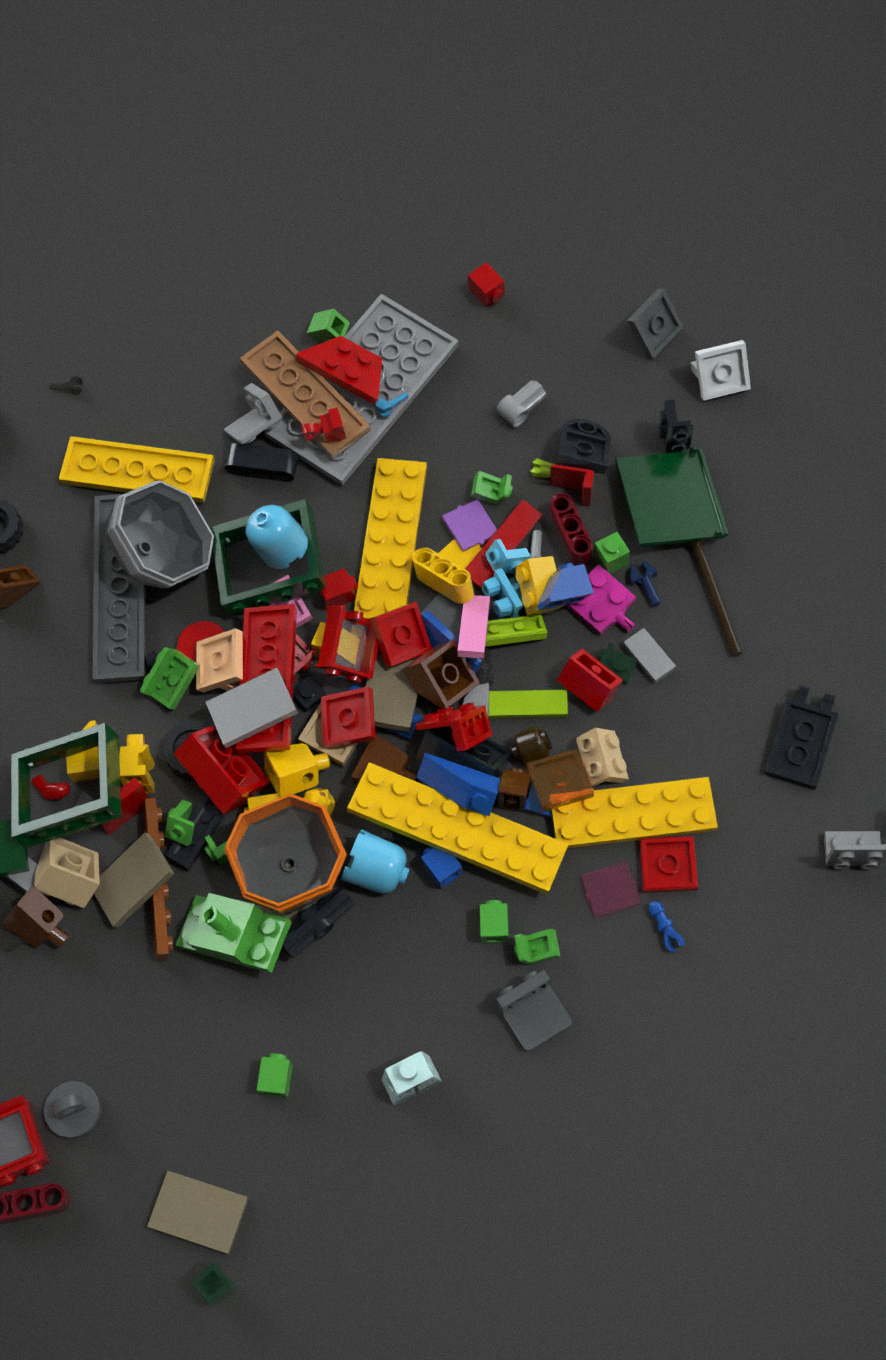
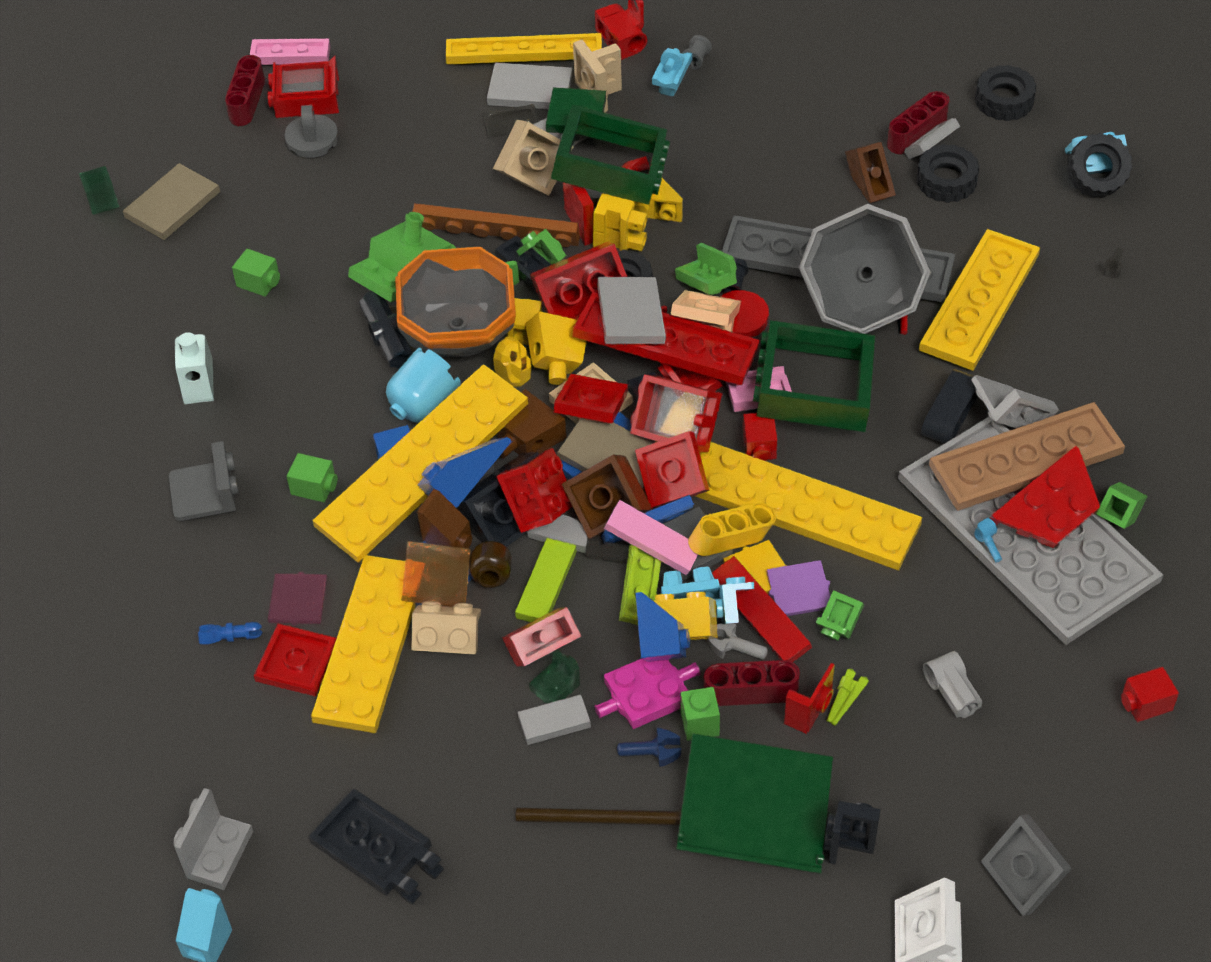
camera: 105 degrees right, 15 degrees down
(36, 919) = (497, 118): reddish brown torso -> none
(132, 879) = (499, 200): dark tan tile -> none
(276, 536) = (821, 358): medium azure cylinder -> none
(330, 425) = (962, 455): red piece -> none
(537, 947) = (268, 504): bright green bracket -> none
(584, 446) = (858, 720): black plate -> none

